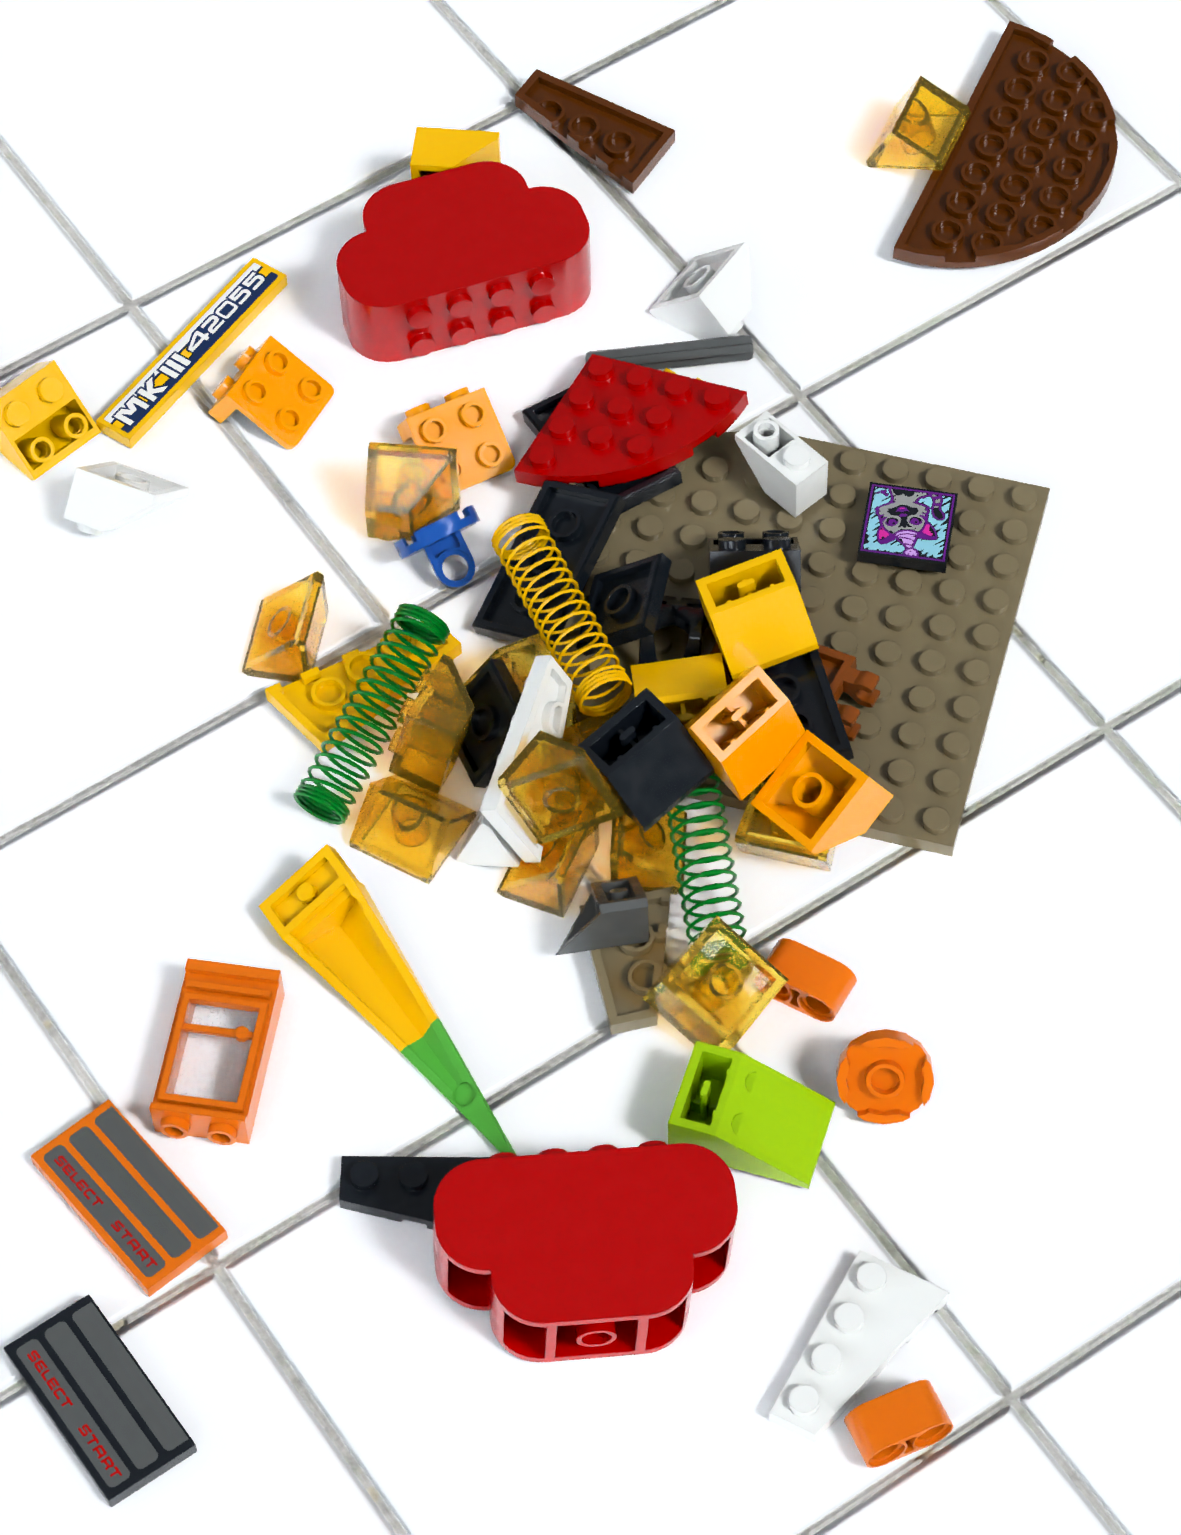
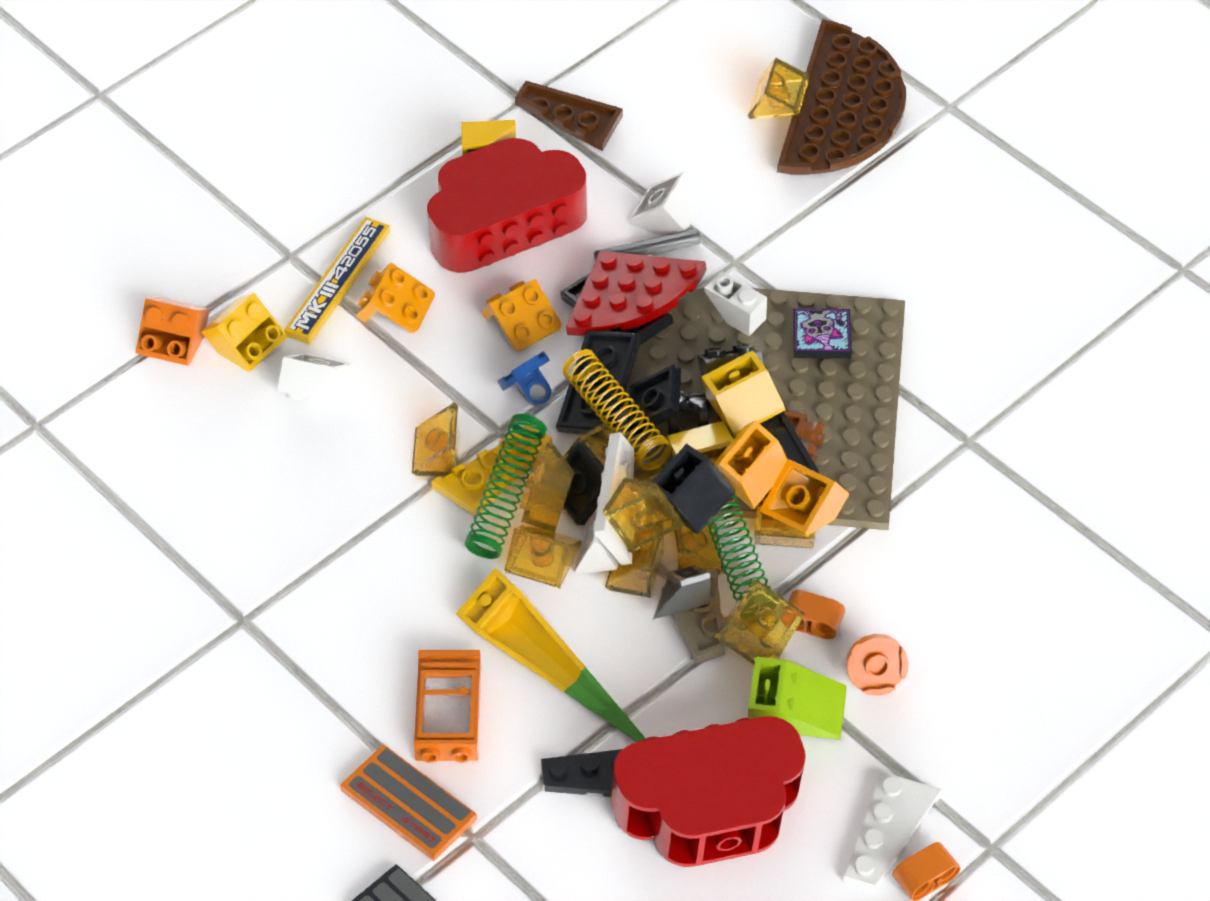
camera: 10 degrees left, 5 degrees down
(409, 488) = (500, 346): clear yellow slope -> none

